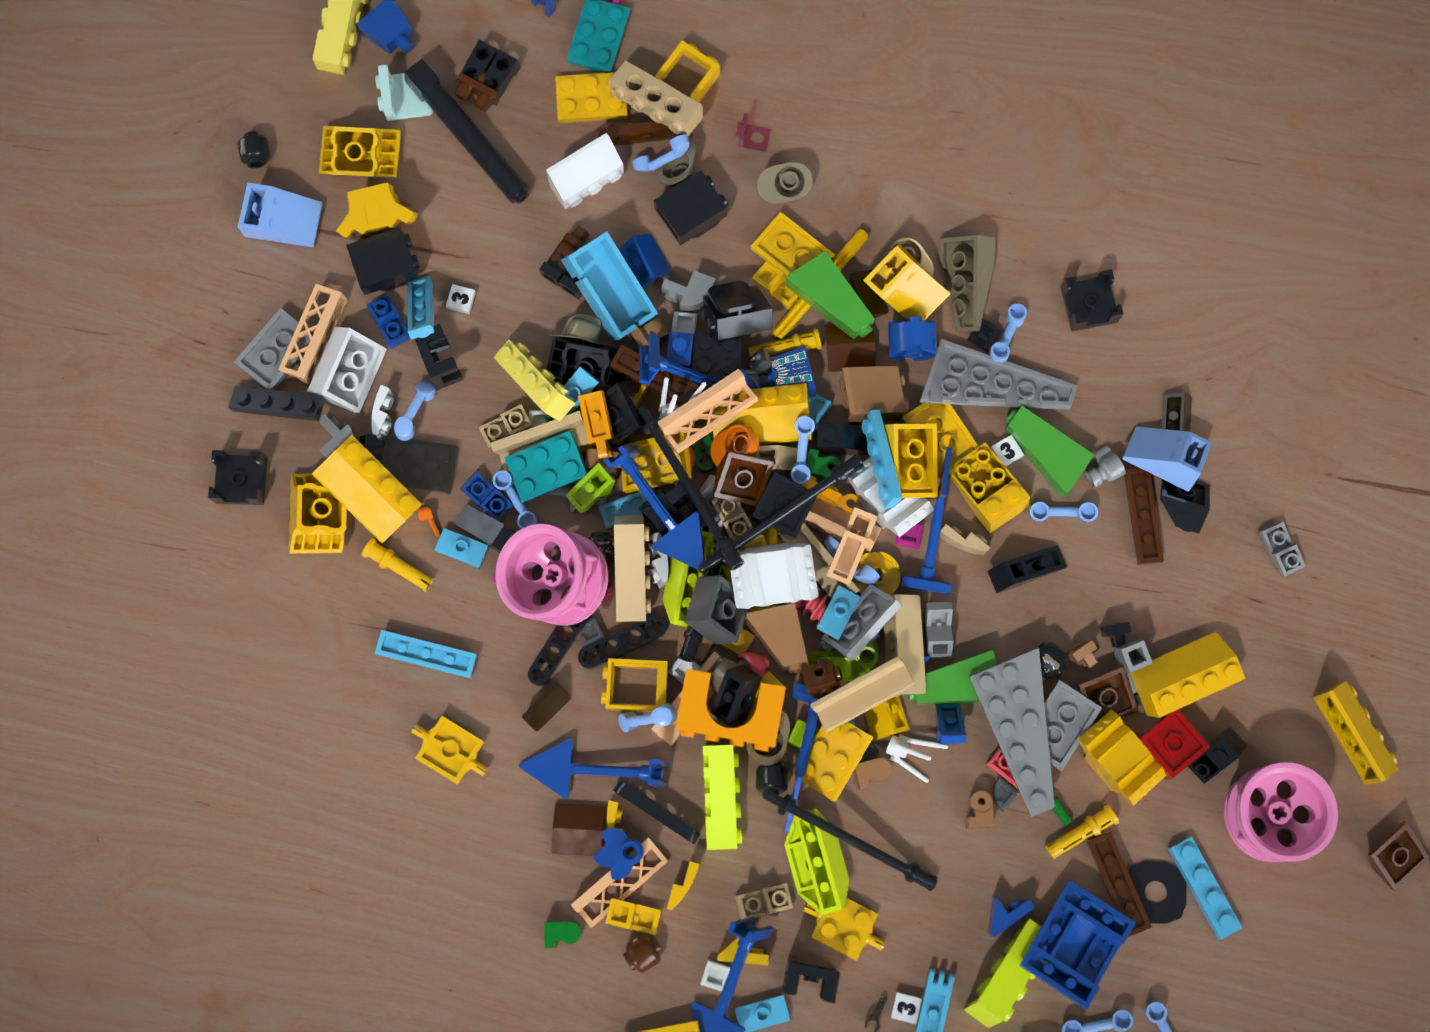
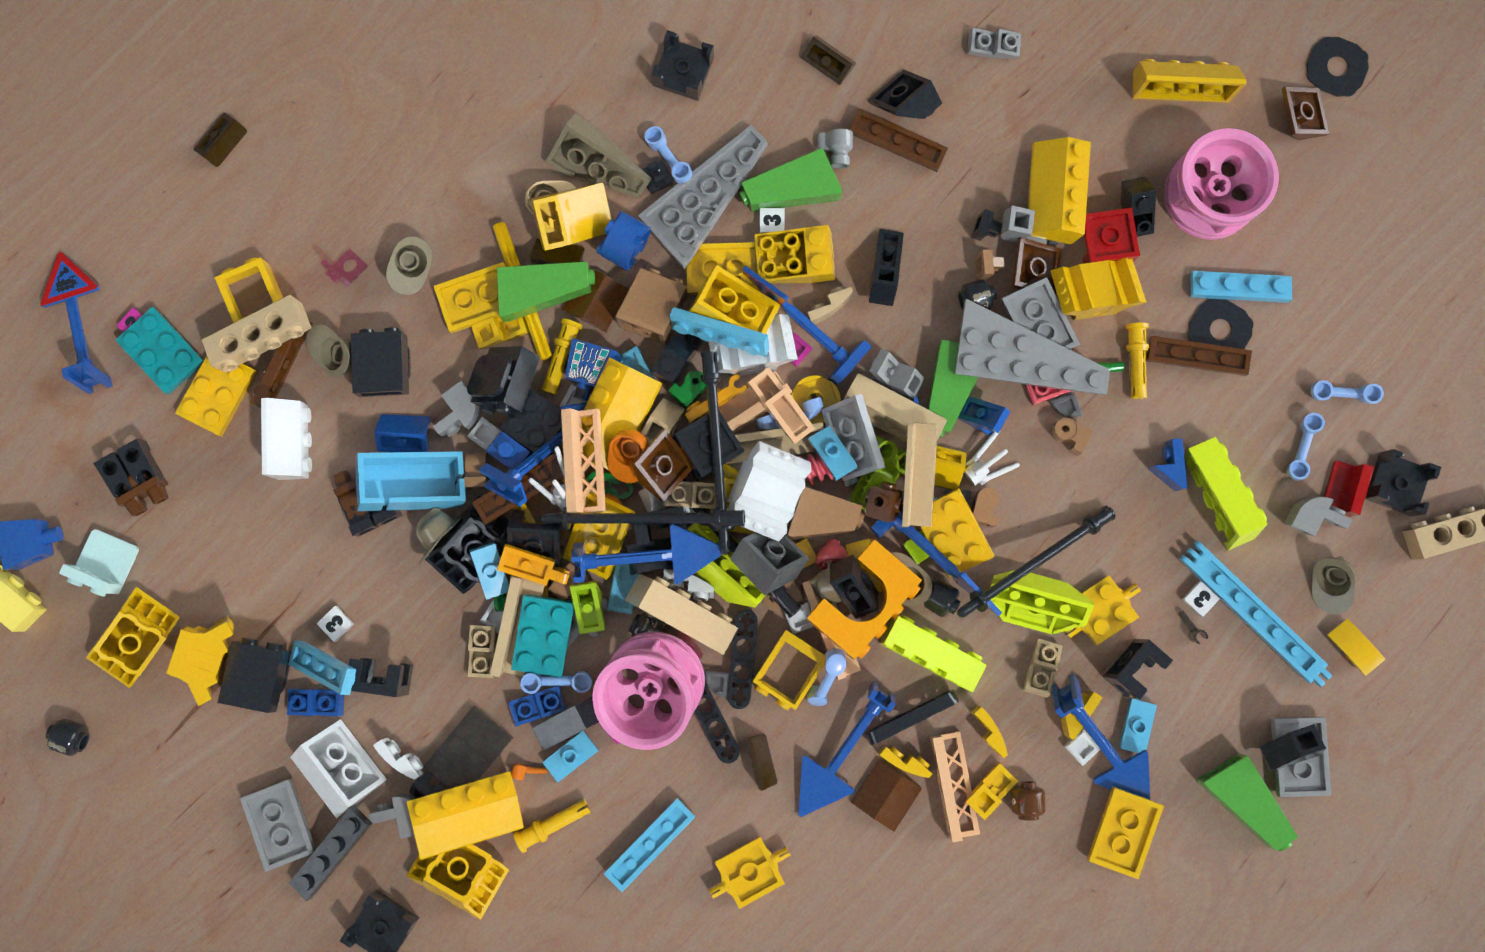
camera: 60 degrees left, 5 degrees up
(279, 216) = (148, 749): light blue slope -> none
(322, 332) = (288, 771): light nougat fence -> none
(403, 426) = (425, 746): light blue bar -> none
(428, 88) = (111, 538): black brick -> none
(534, 380) = (456, 600): light yellow brick -> none
(565, 931) = (968, 862): green leg -> none
(615, 853) = (932, 777): blue plate -> none
(679, 146) = (315, 339): light blue bar -> none
(760, 360) = (561, 386): flat silver tile -> none
(800, 470) = (684, 410): light blue bar -> none
(1077, 944) = (1234, 422): blue slope -> none
(1085, 511) = (864, 187): light blue bar -> none
(1168, 454) = (860, 84): light blue slope -> none

